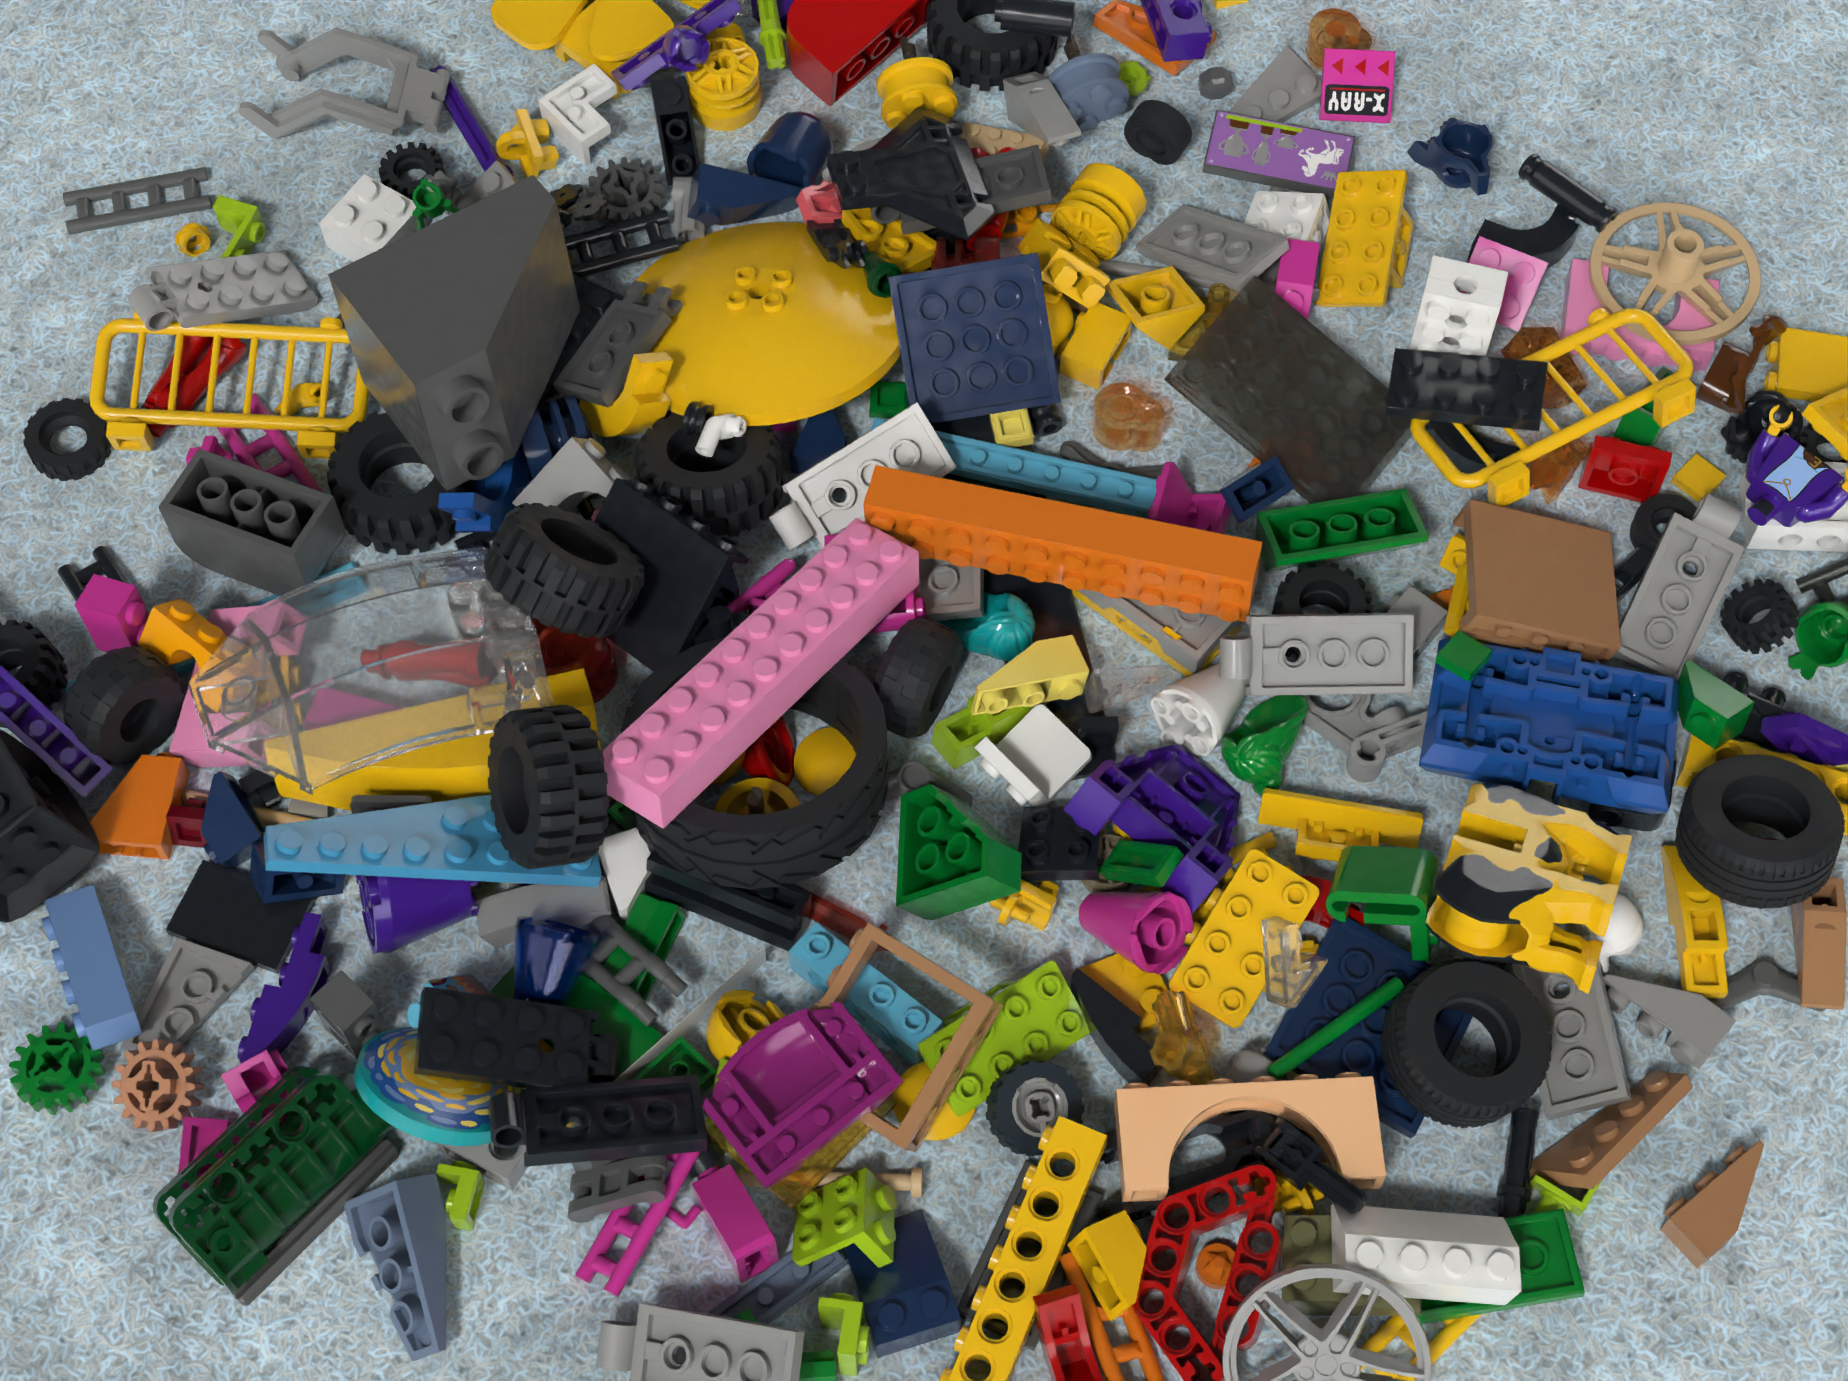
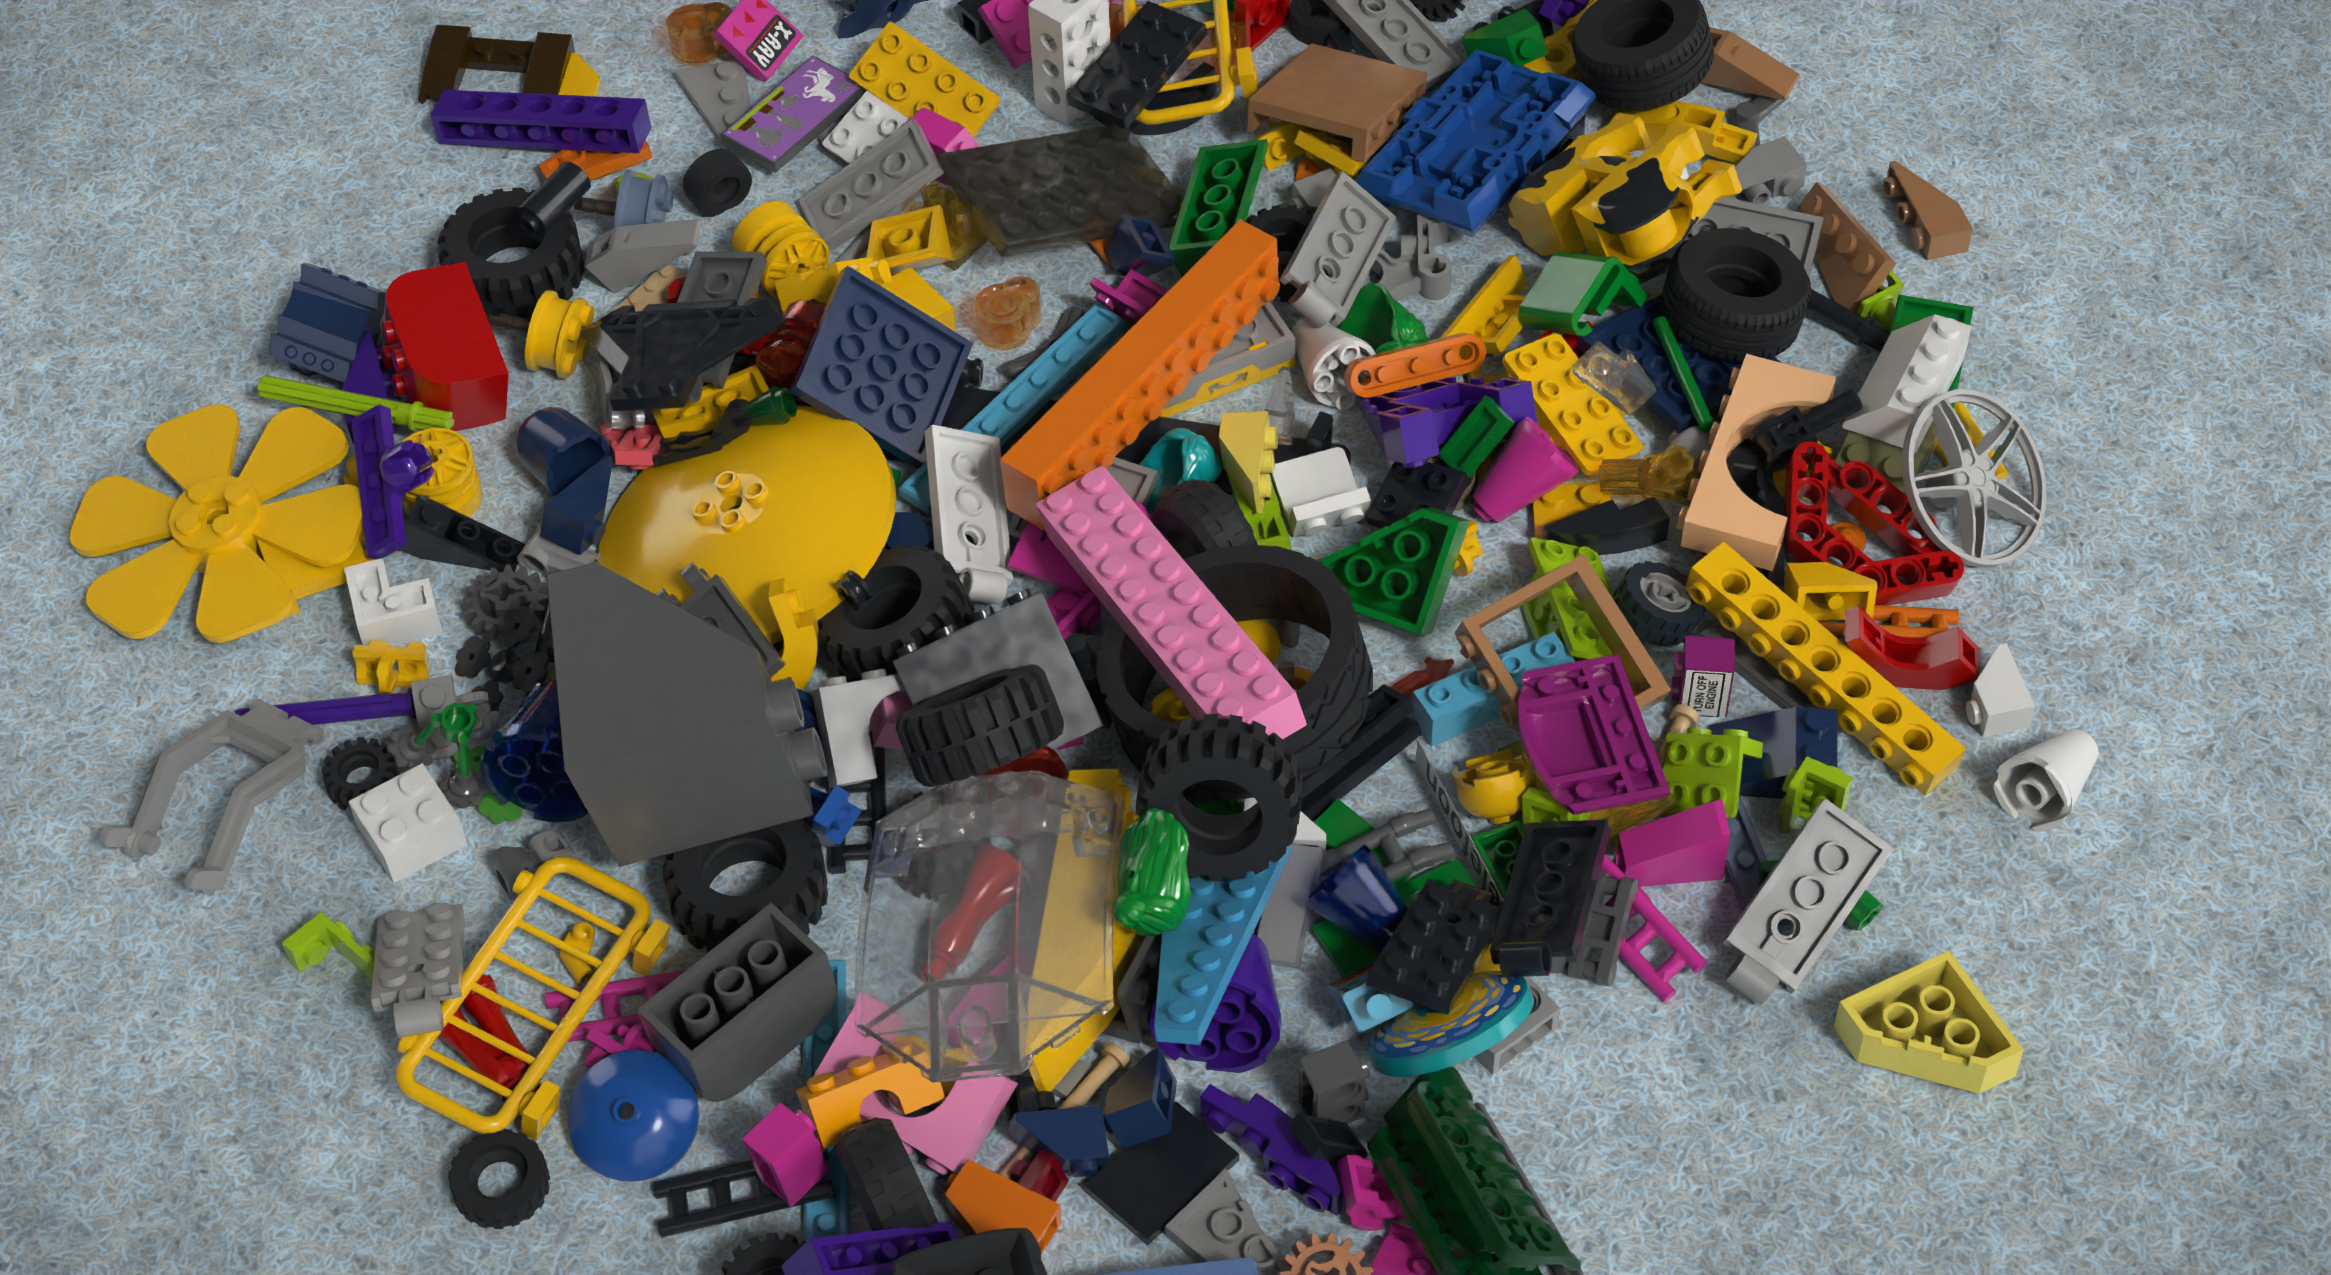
camera: 65 degrees left, 10 degrees down
(122, 215) = (226, 1060): dark grey bar -> none
(133, 499) = (656, 1133): none -> blue dish
(201, 238) = (306, 993): yellow plate -> none
(298, 1032) = (1326, 1138): none -> black tile
(407, 1239) = (1582, 1120): sand blue wedge -> none
(432, 768) = (1152, 875): none -> green hair
(465, 1199) = (1556, 1057): lime bracket -> none
(719, 428) = (872, 573): white arm -> none
(952, 1179) = (1704, 675): none -> brick
(1012, 428) = (971, 394): light yellow tile -> none
(1215, 83) = (683, 131): dark grey tile -> none
(1223, 779) = (1415, 365): none -> orange plate
(1463, 656) = (1390, 162): green tile -> none

